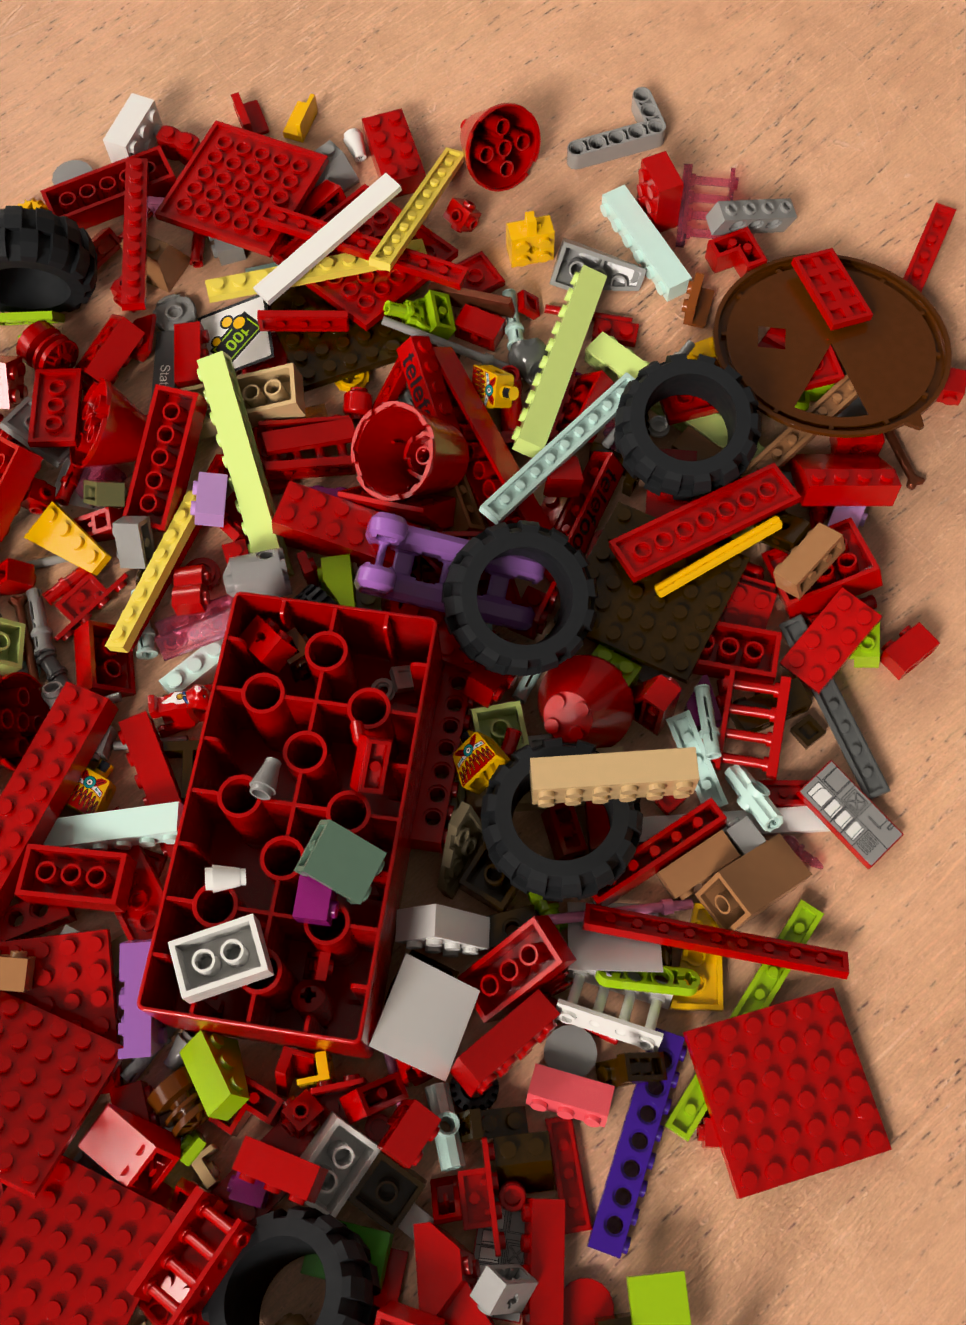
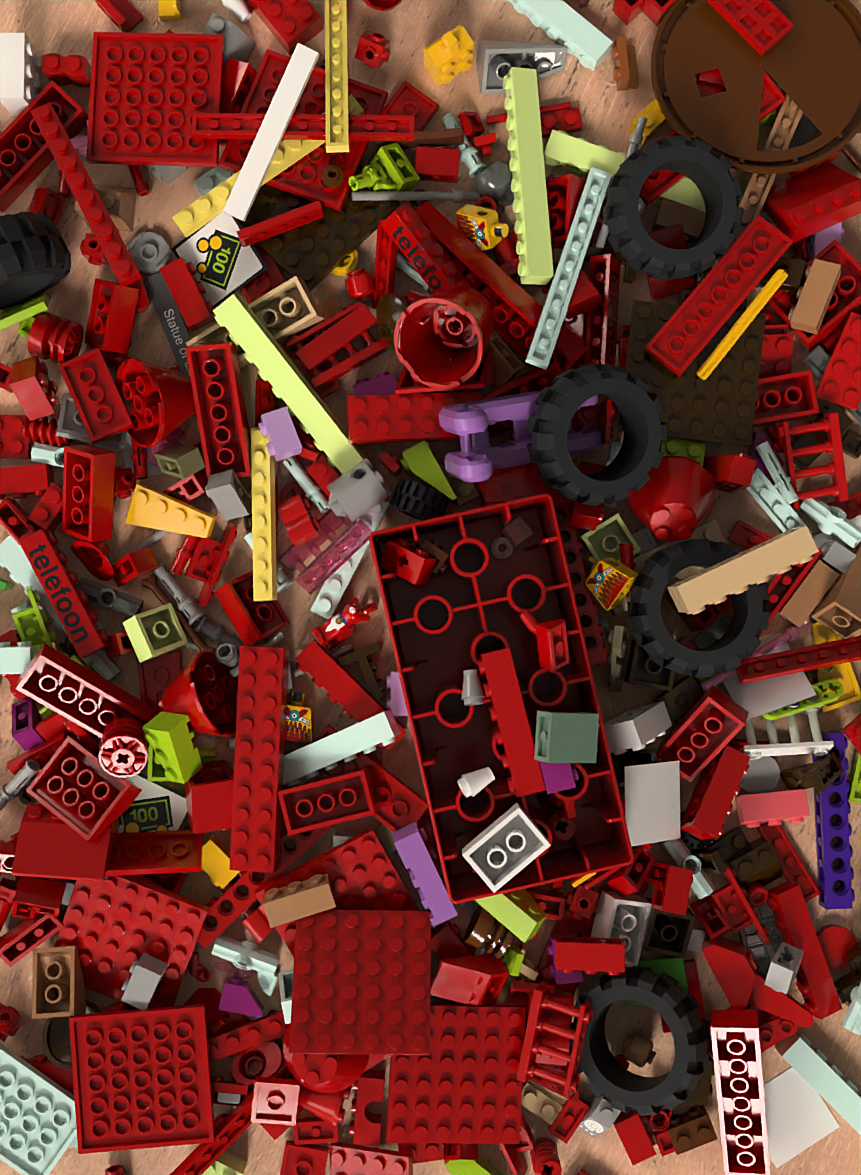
camera: 30 degrees left, 20 degrees up
(217, 561) = (312, 491): none -> light aqua pin
(291, 827) = (512, 722): none -> red brick
(371, 297) = (332, 182): none -> reddish brown plate
(533, 323) = (484, 143): none -> red tile

